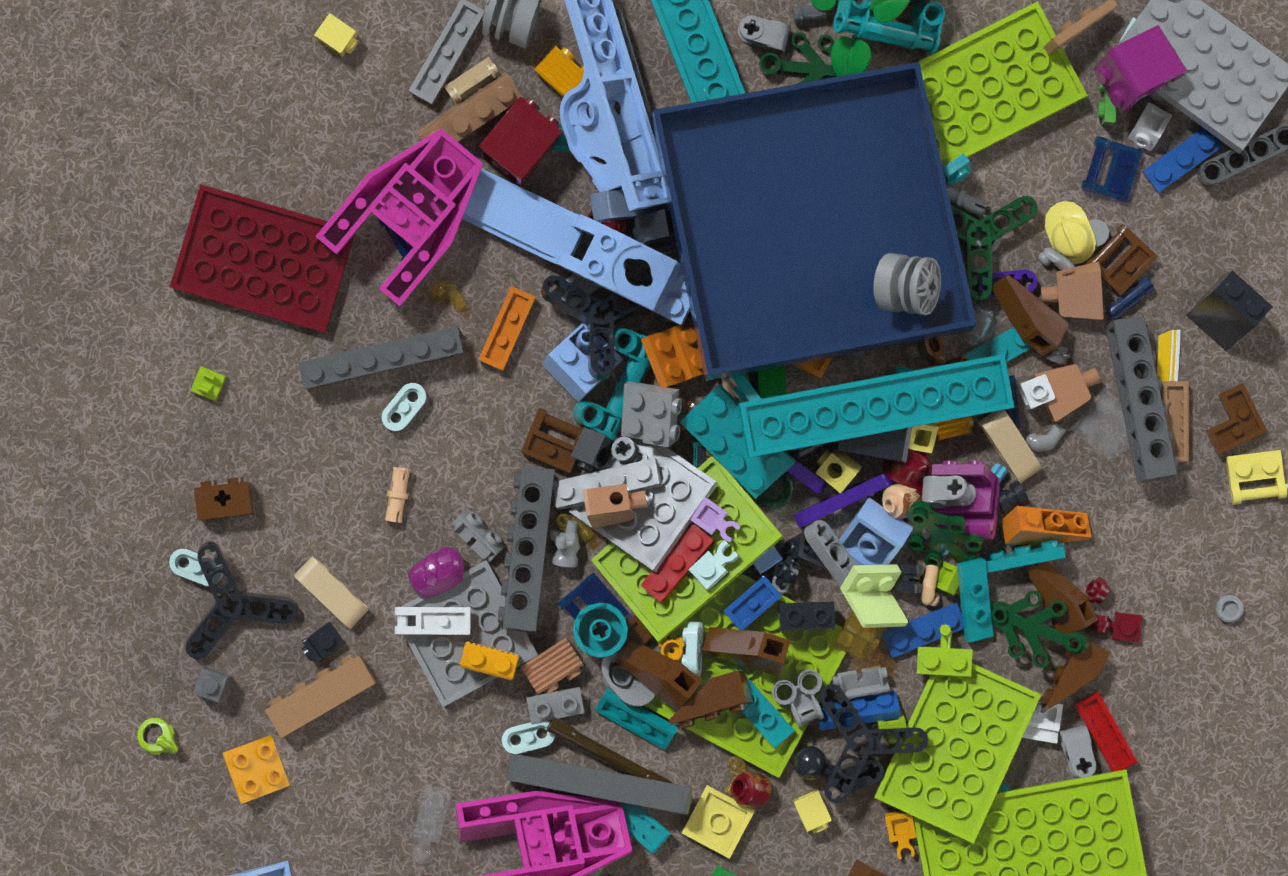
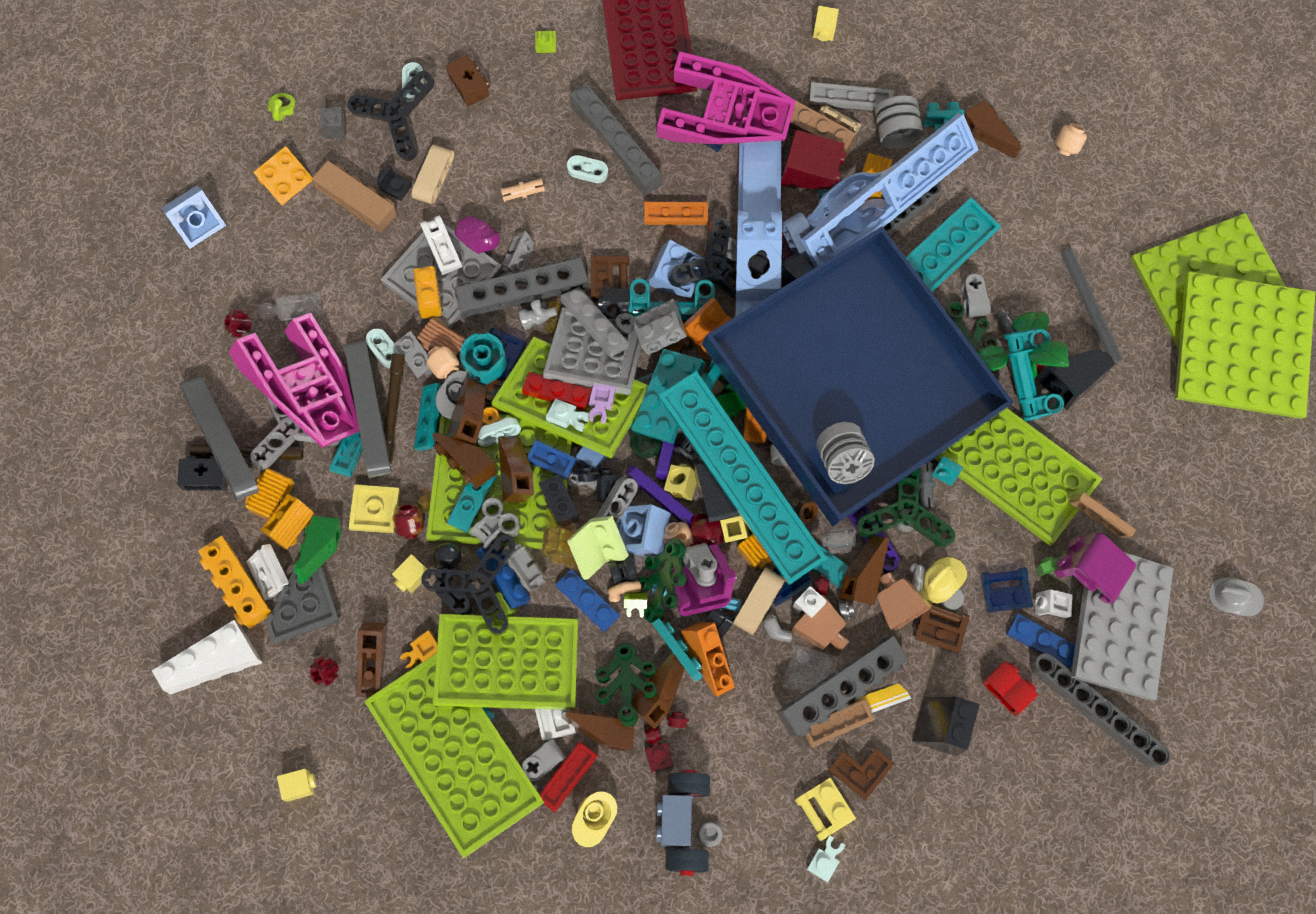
camera: 65 degrees right, 15 degrees down
(448, 291) = (683, 165): clear yellow arm -> none
(585, 677) = (442, 362): none -> light nougat head
(603, 508) = (579, 323): nougat torso -> none
(945, 660) = (570, 622): lime plate -> none
(975, 599) = (627, 625): teal plate -> none
(1020, 368) = (821, 585): none -> dark red plate
(1130, 298) = (916, 647): dark blue axle -> none
(1162, 723) = (593, 818): none -> light yellow piece
(1206, 640) = (676, 822): none -> brick
(1218, 220) = (1010, 688): none -> red brick

